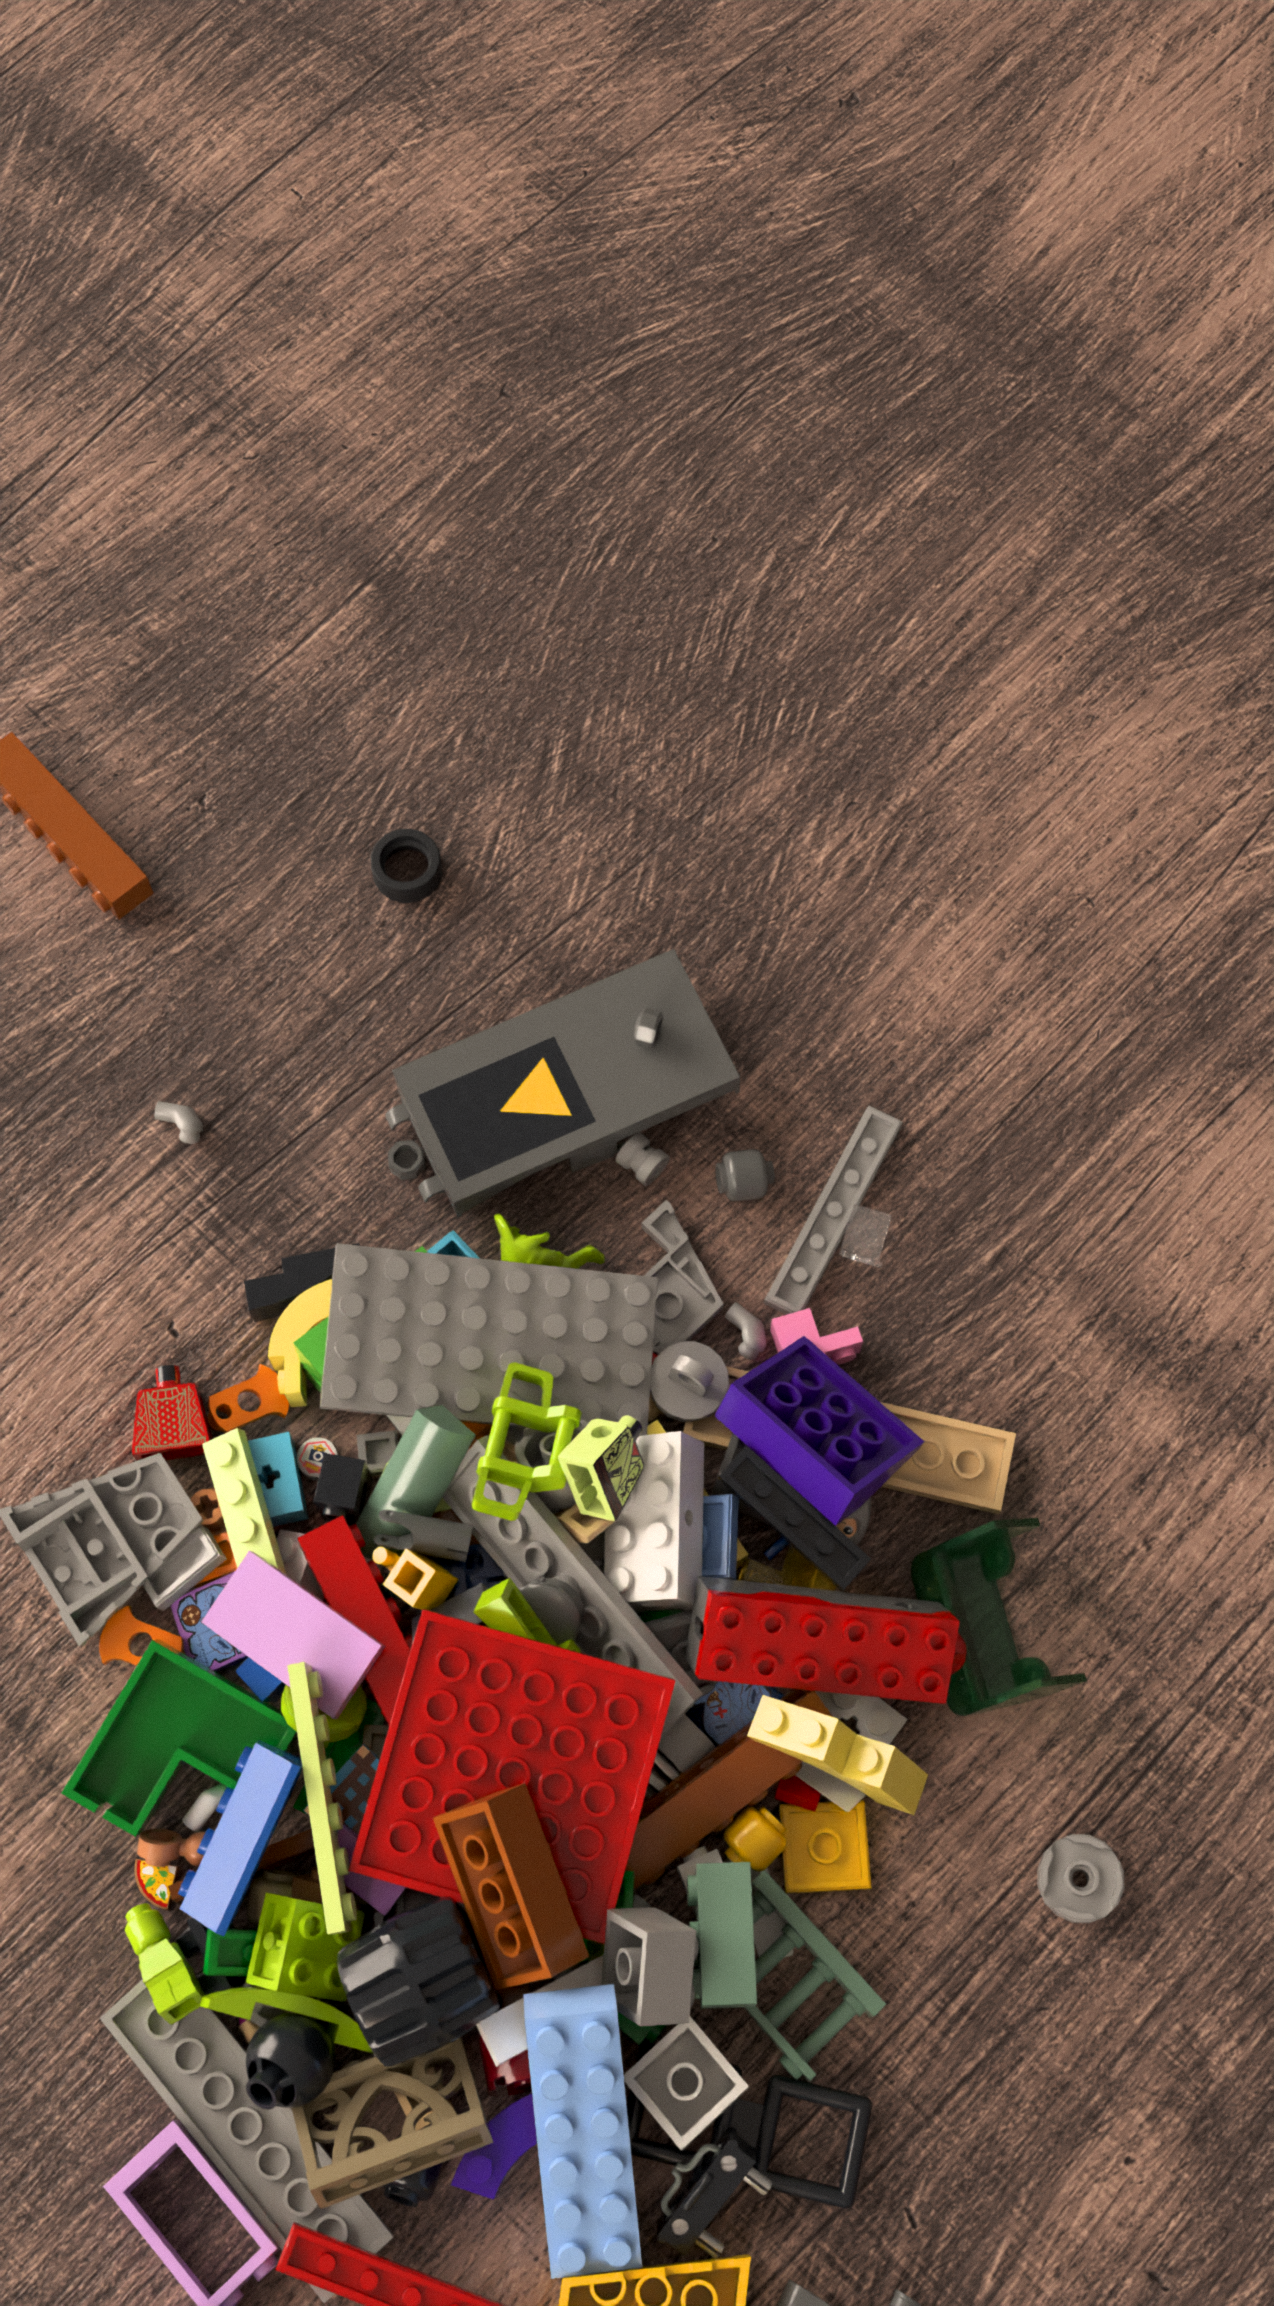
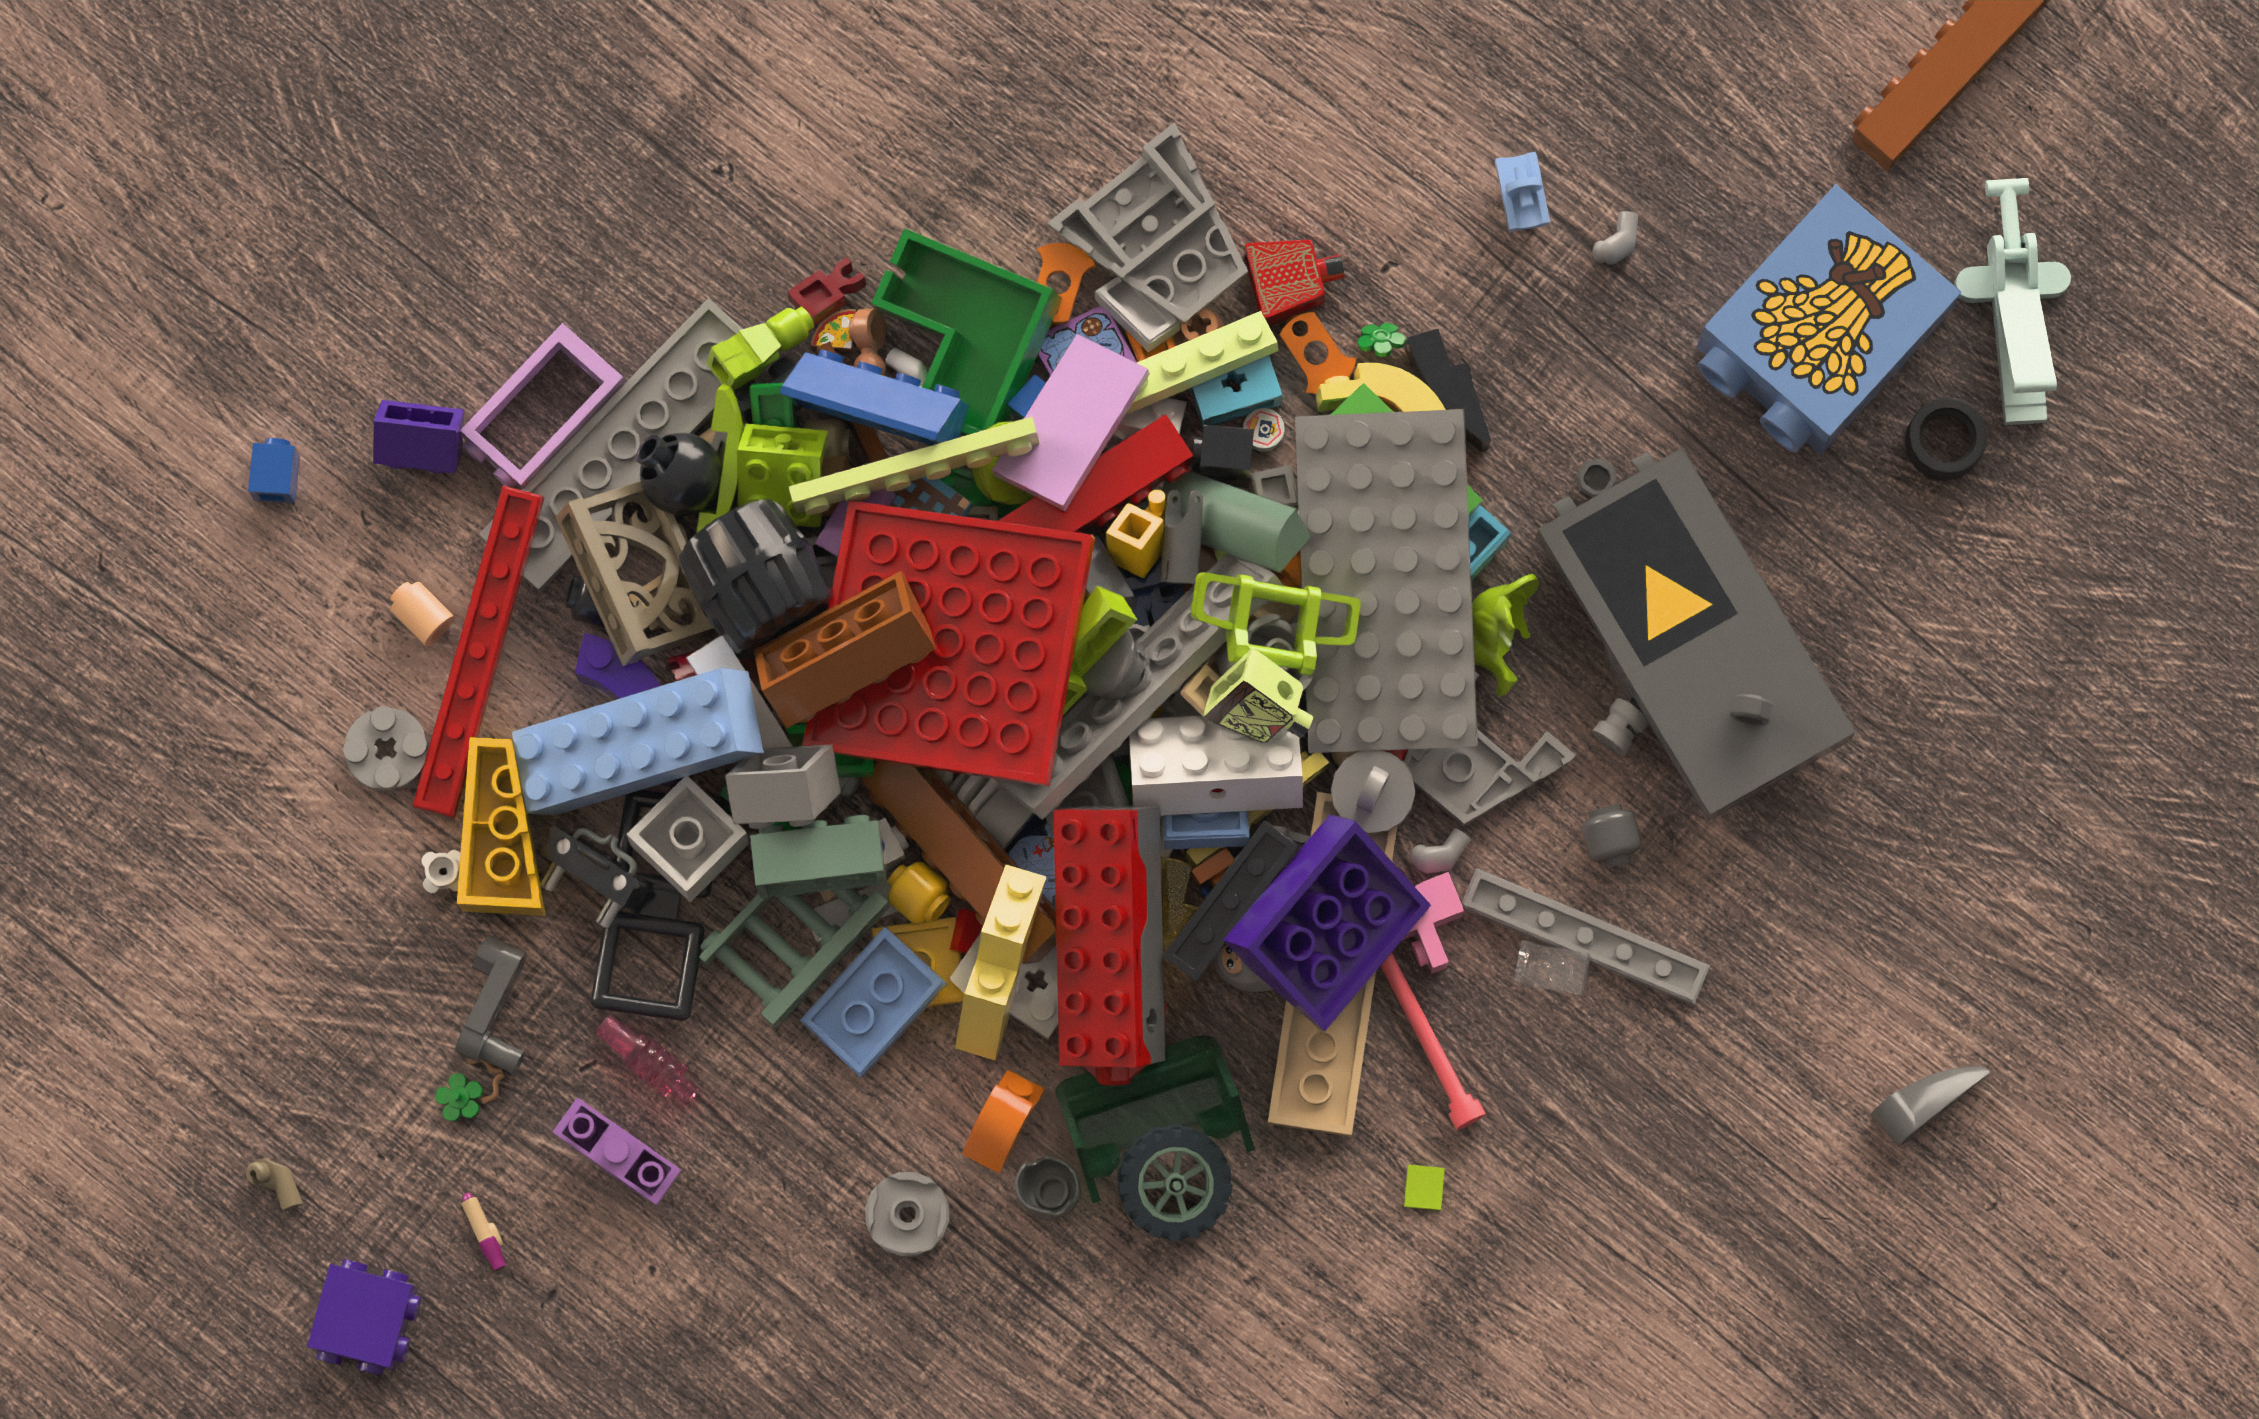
camera: 85 degrees right, 10 degrees up
(114, 1890) = (825, 294): none -> dark red plate
(121, 1195) = (1522, 192): none -> light blue hips
(244, 1340) = (1380, 339): none -> plant
(288, 945) = (1824, 323): none -> medium blue brick
(323, 794) = (2015, 287): none -> light aqua piece
(755, 1539) = (1212, 868): none -> orange tile
(863, 1896) = (873, 1002): none -> medium blue tile
(911, 2147) = (647, 1059): none -> clear pink hinge
(992, 1330) = (1462, 1106): none -> coral piece
(992, 1768) = (1002, 1121): none -> orange brick
(1002, 943) = (1923, 1101): none -> piece
(1013, 2188) = (616, 1151): none -> medium lavender slope
(1030, 1627) = (1187, 1222): none -> black wheel
(1060, 1730) = (1047, 1188): none -> dark grey hair
(1062, 1375) = (1424, 1187): none -> lime piece

